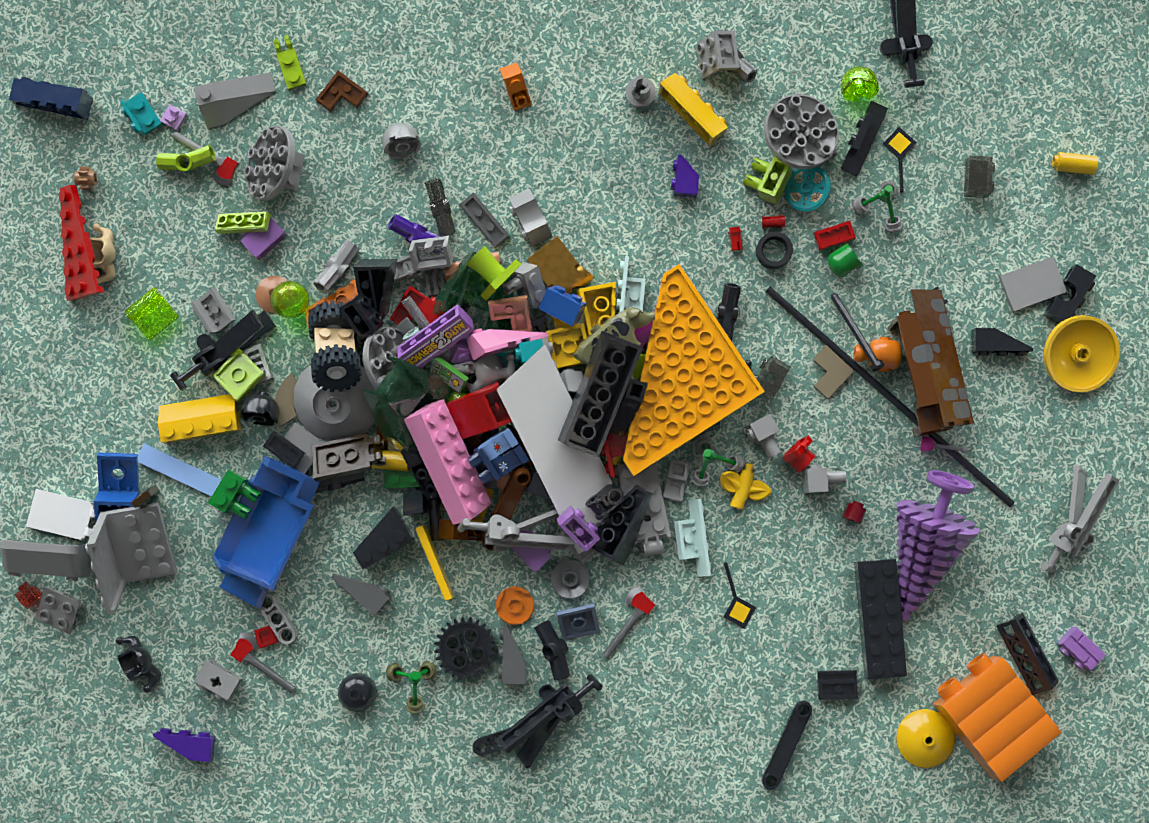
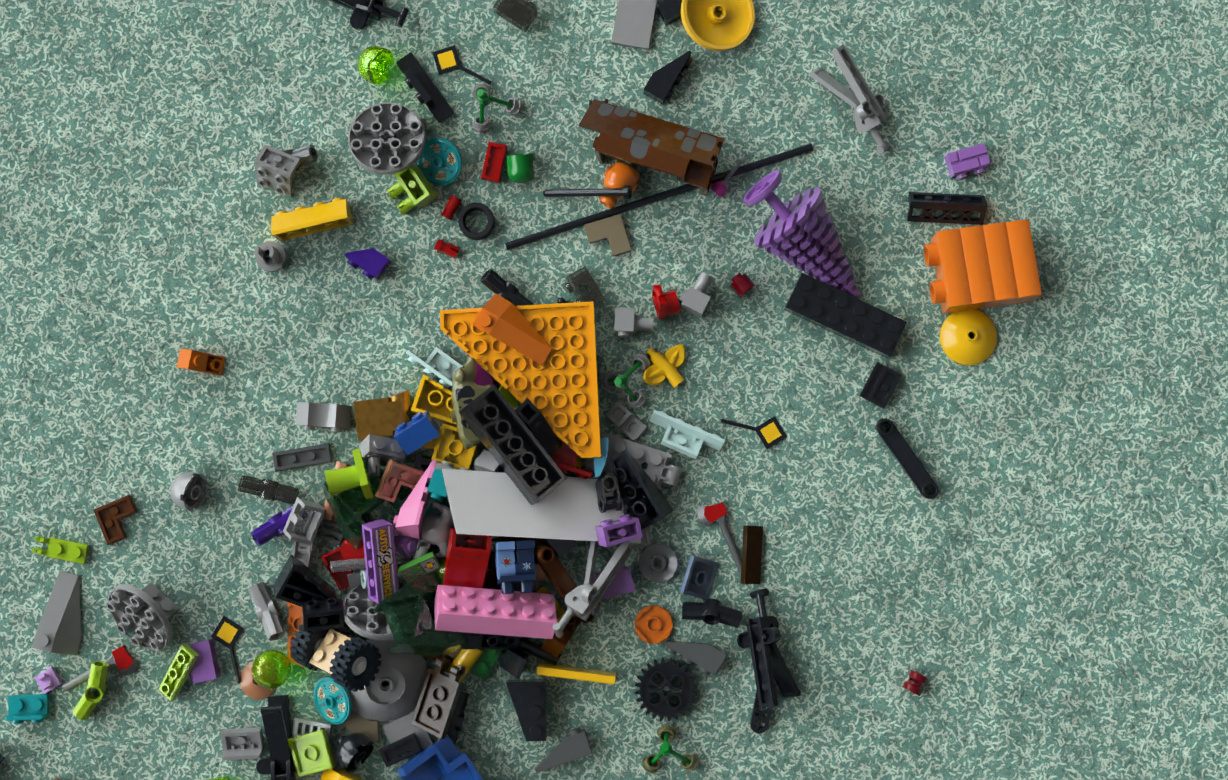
camera: 55 degrees left, 0 degrees up
(292, 367) = (332, 701): none -> teal shield
(297, 245) = (227, 634): none -> piece
(624, 656) = (751, 554): none -> dark brown tile
(627, 477) = (599, 463): none -> medium azure slope
(700, 330) = (509, 326): none -> orange wedge

